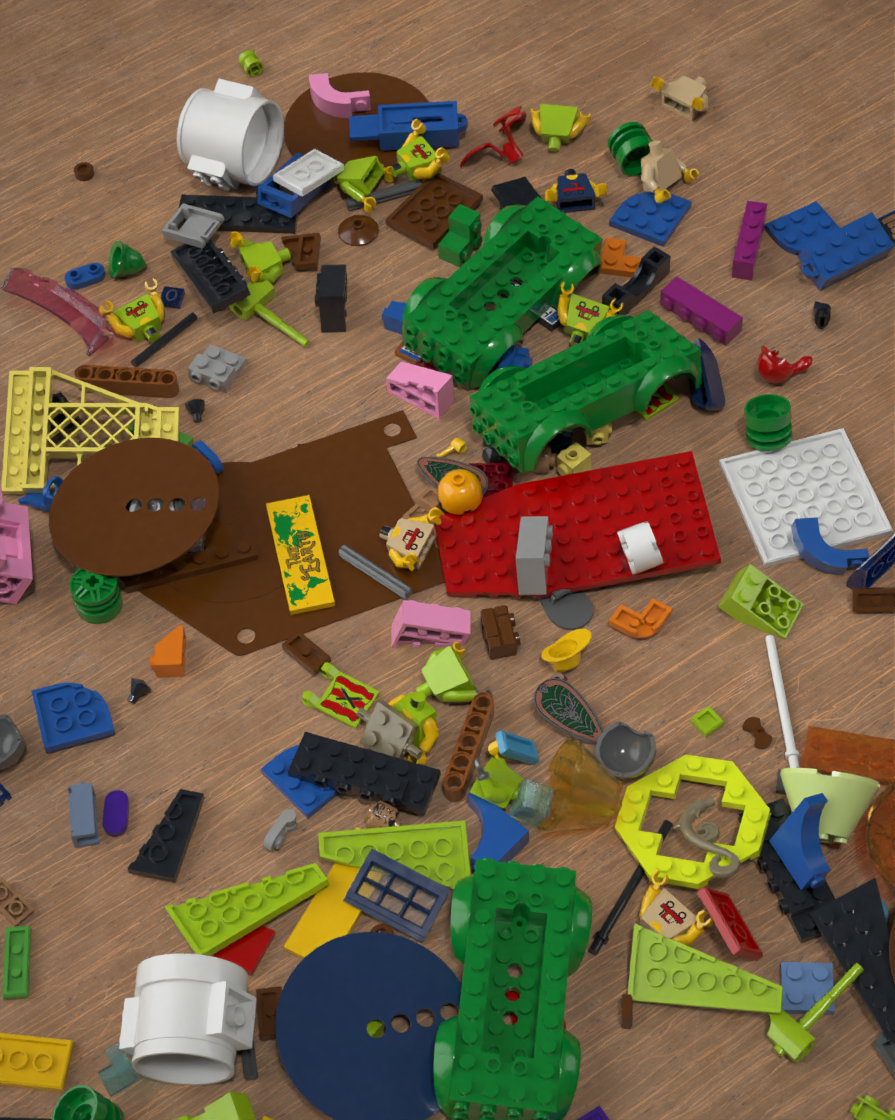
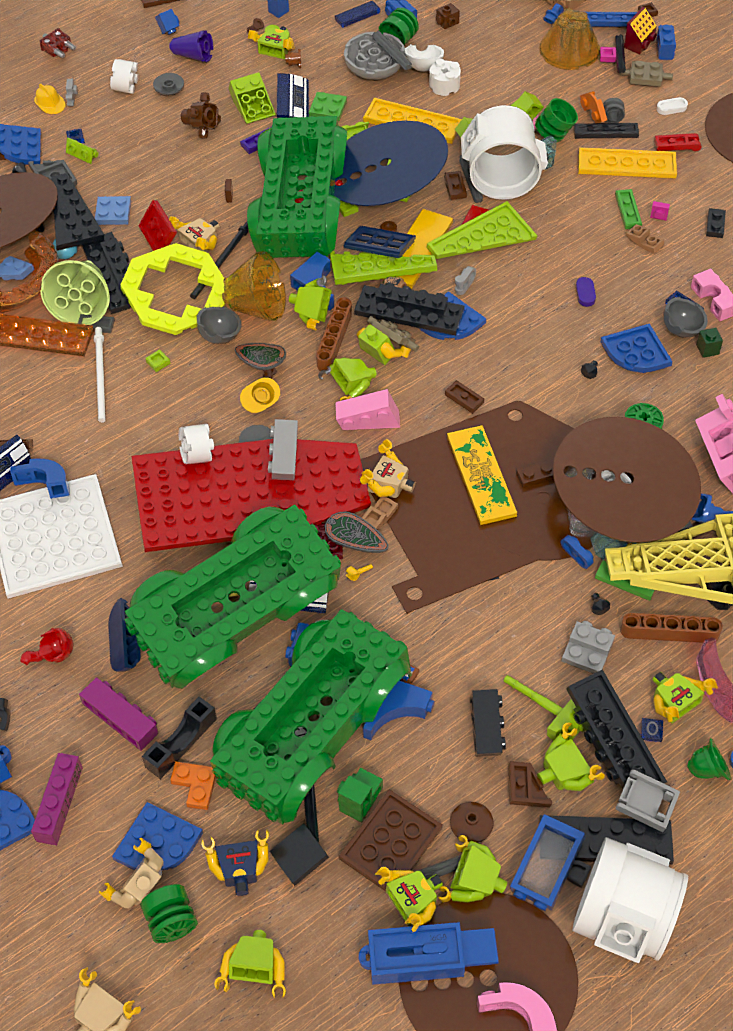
camera: 175 degrees right, 0 degrees up
(83, 815) = (608, 285): sand blue window -> none
(164, 339) = (648, 680): black bar -> none
(169, 841) = (542, 275): black wing -> none
(170, 654) = (570, 390): orange slope -> none
(308, 172) = (532, 863): white tile -> none
(342, 697) = (432, 369): flag -> none
(375, 571) = (419, 462): dark grey axle -> none
(422, 387) = (386, 617): bright pink wedge -> none
(459, 491) = (348, 511): light orange cylinder -> none
(499, 632) = (313, 413): reddish brown brick -> none
(510, 149) = (305, 908): red plant -> none
(517, 747) = (298, 327): dark azure tile -> none
(532, 802) = (286, 281): clear light blue piece -> none
(581, 314) = (230, 693): torso -> none
(643, 624) = (216, 425): orange plate -> none
(683, 976) = (192, 201): lime wing -> none
(710, 834) = (168, 262): dark tan plant -> none
(753, 726) = (119, 350): reddish brown piece -> none
(760, 602) = (106, 440): lime slope -> none
(768, 422) = (74, 570): green wheel -> none
(792, 1036) = (122, 178): lime piece -> none
(799, 843) = (102, 258): blue arch -> none

